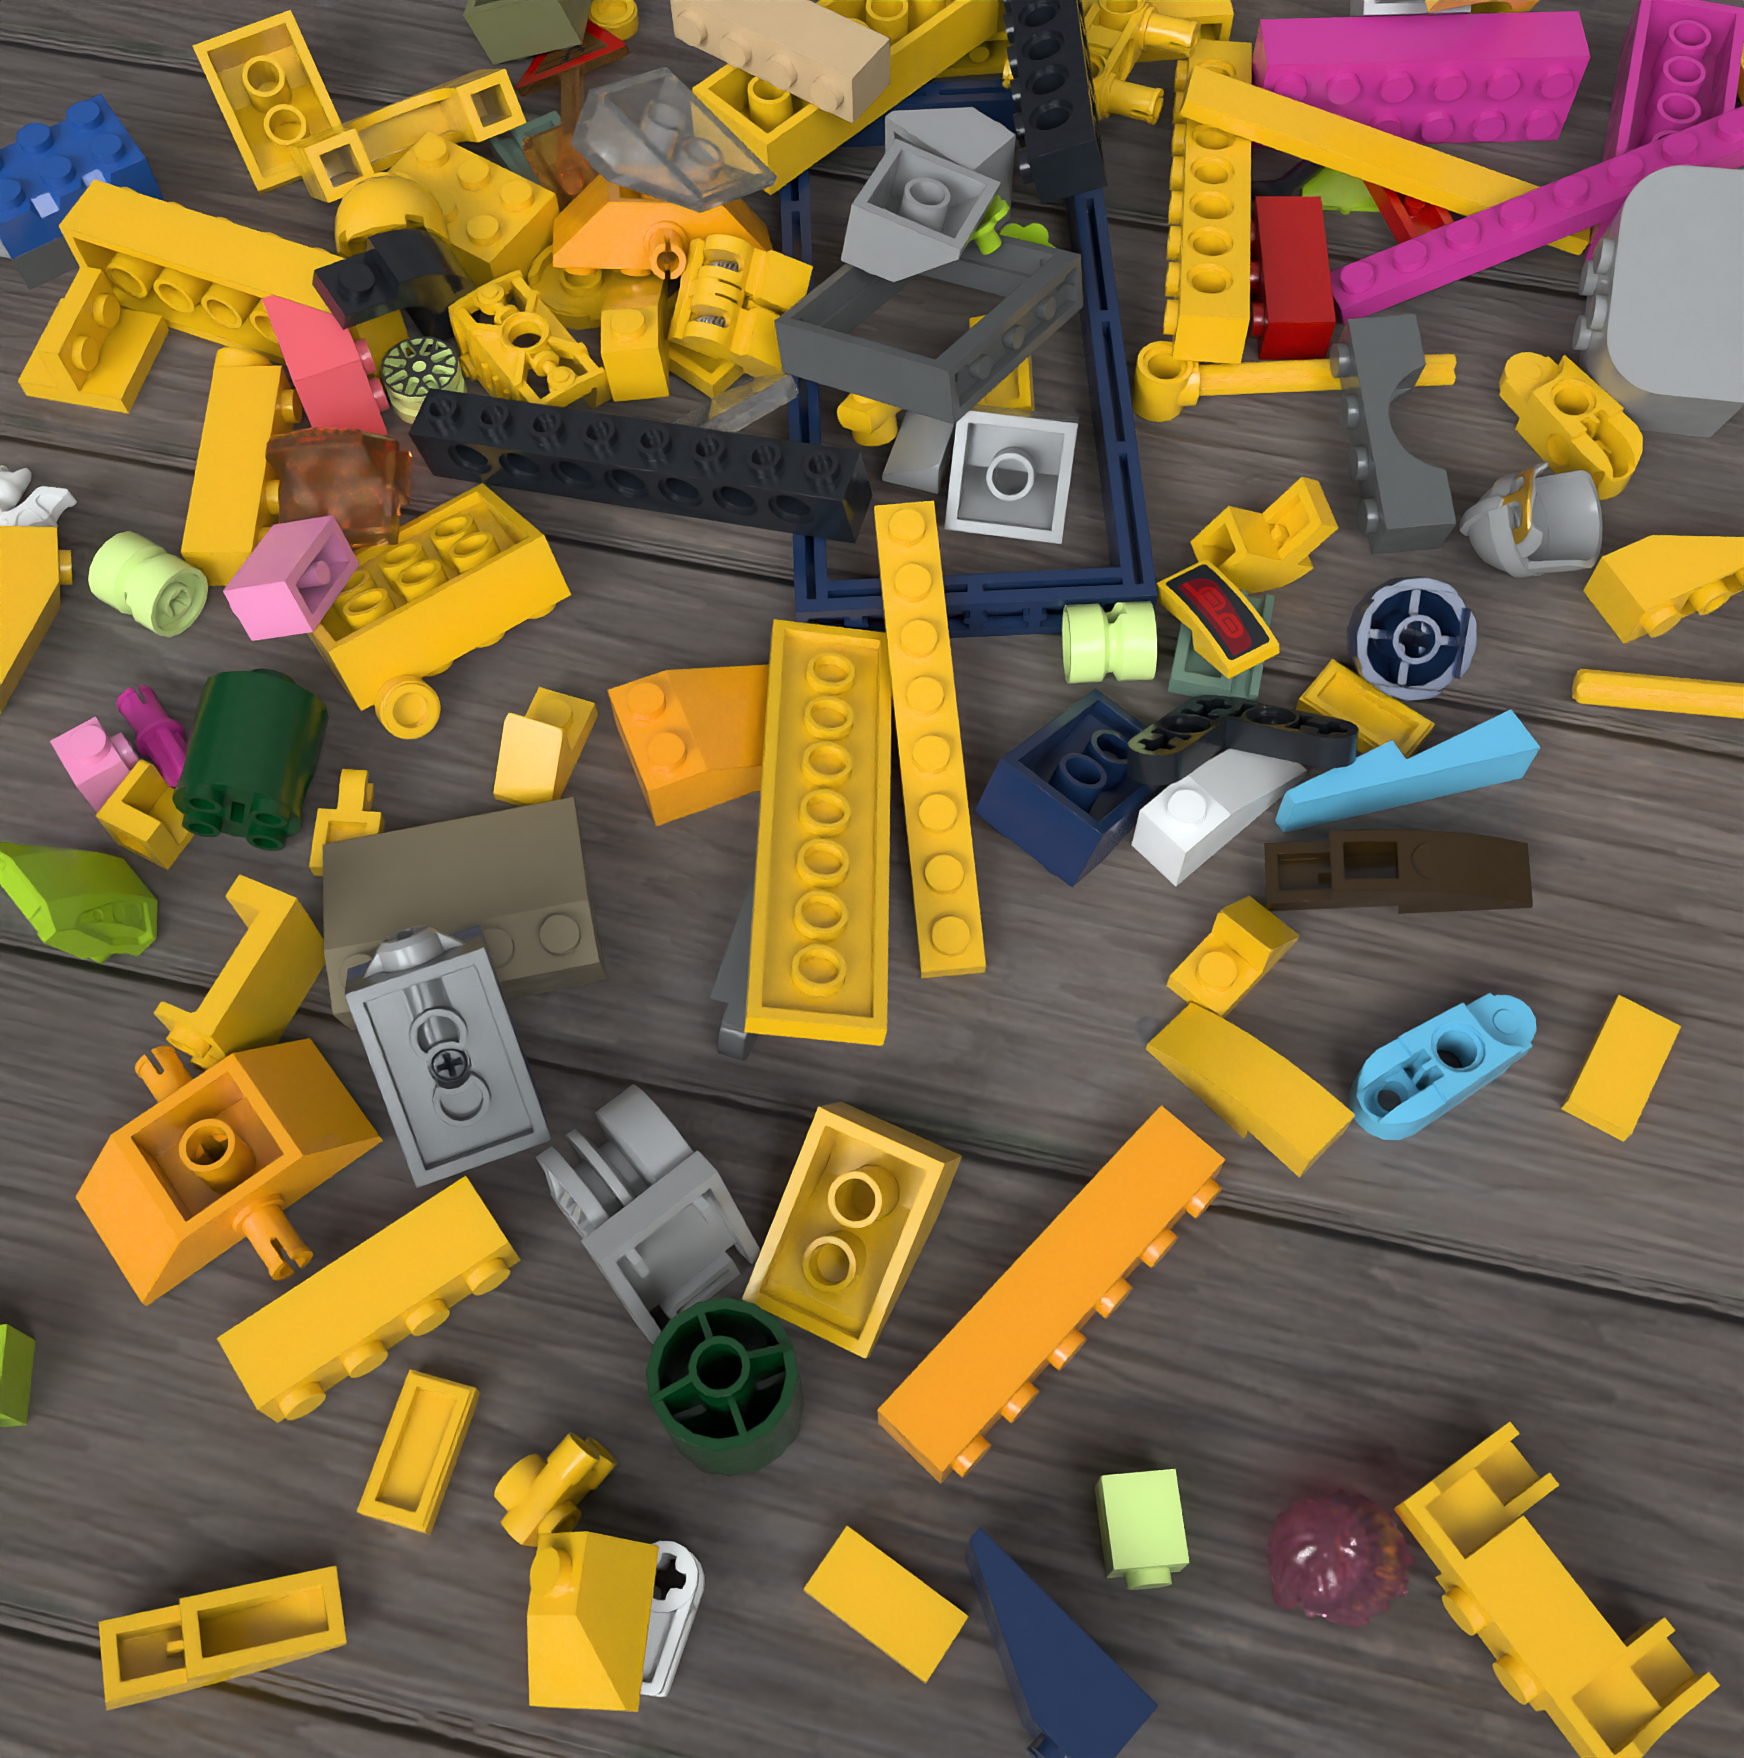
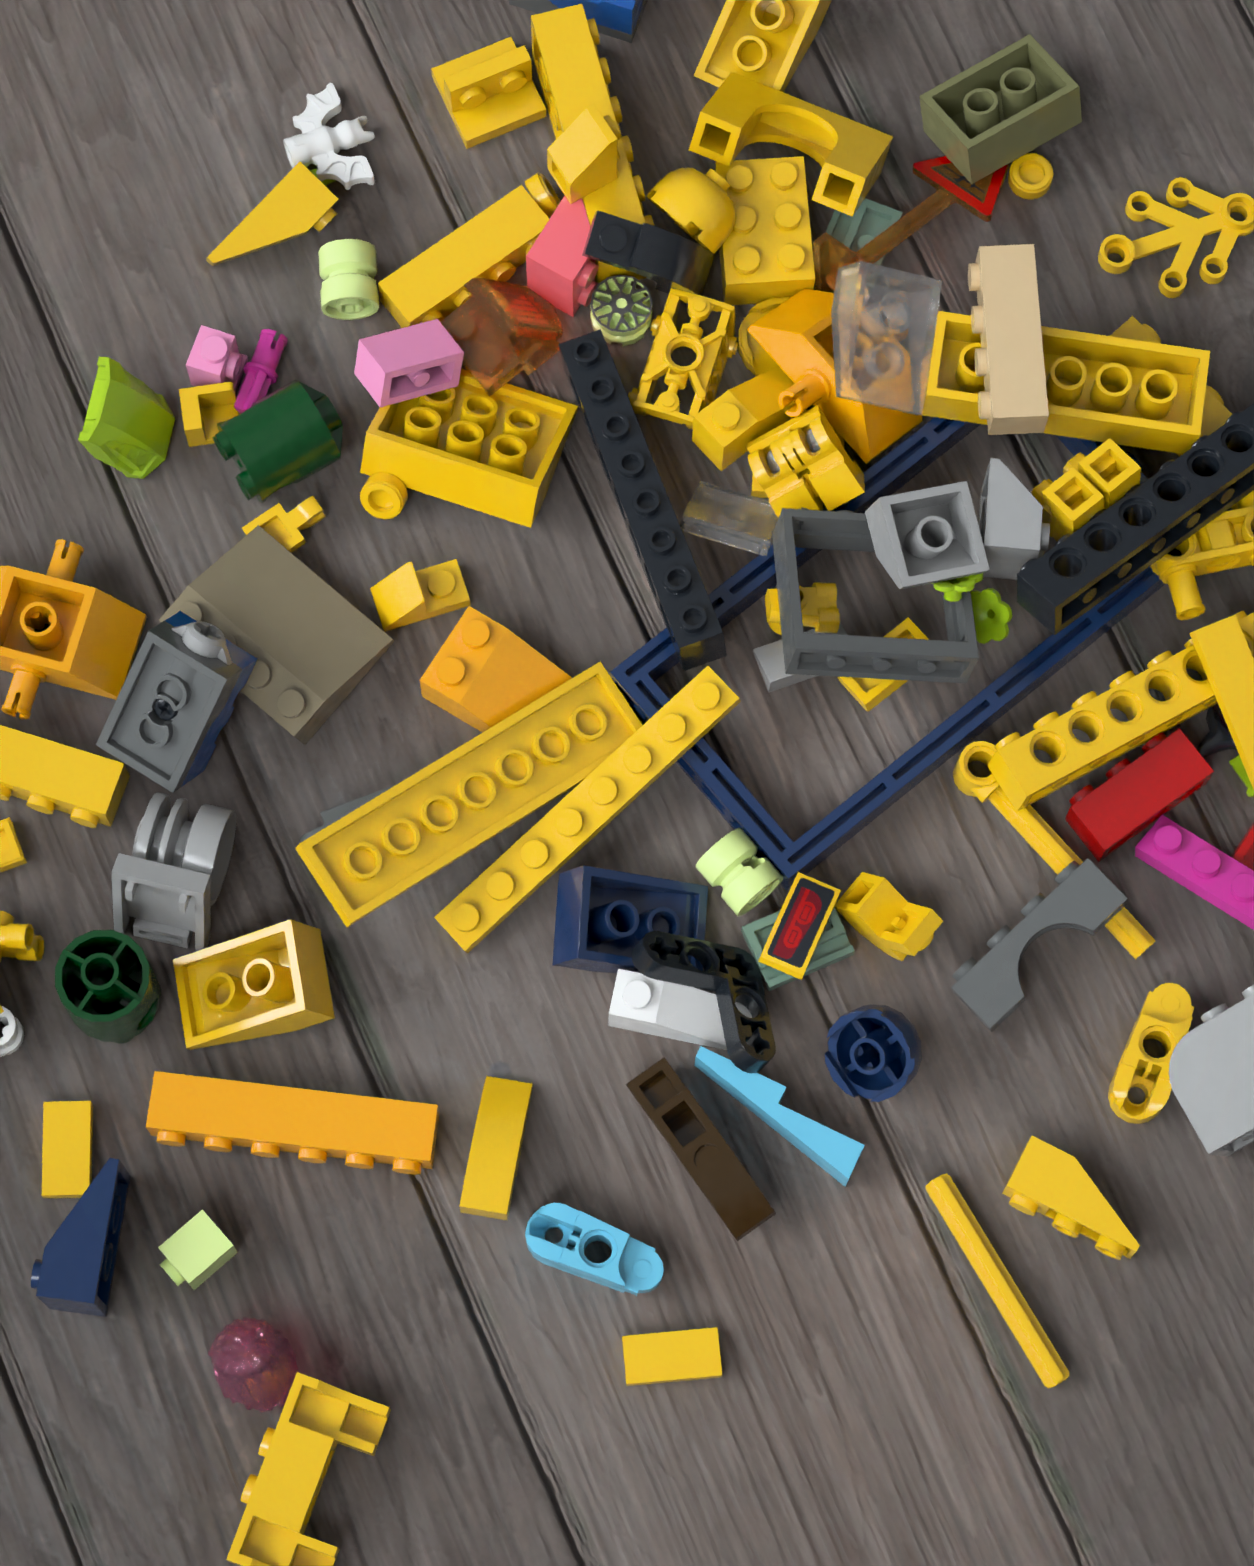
camera: 50 degrees right, 10 degrees up
(245, 241) = (585, 154): none -> yellow slope
(259, 982) = (145, 566): yellow panel -> none
(979, 72) = (1086, 488): none -> yellow hips
(1011, 473) = (809, 729): light grey slope -> none
(1232, 957) = (580, 1089): yellow slope -> none
(1378, 716) = (809, 1077): yellow tile -> none
(1537, 523) = (1033, 1082): light grey helmet -> none

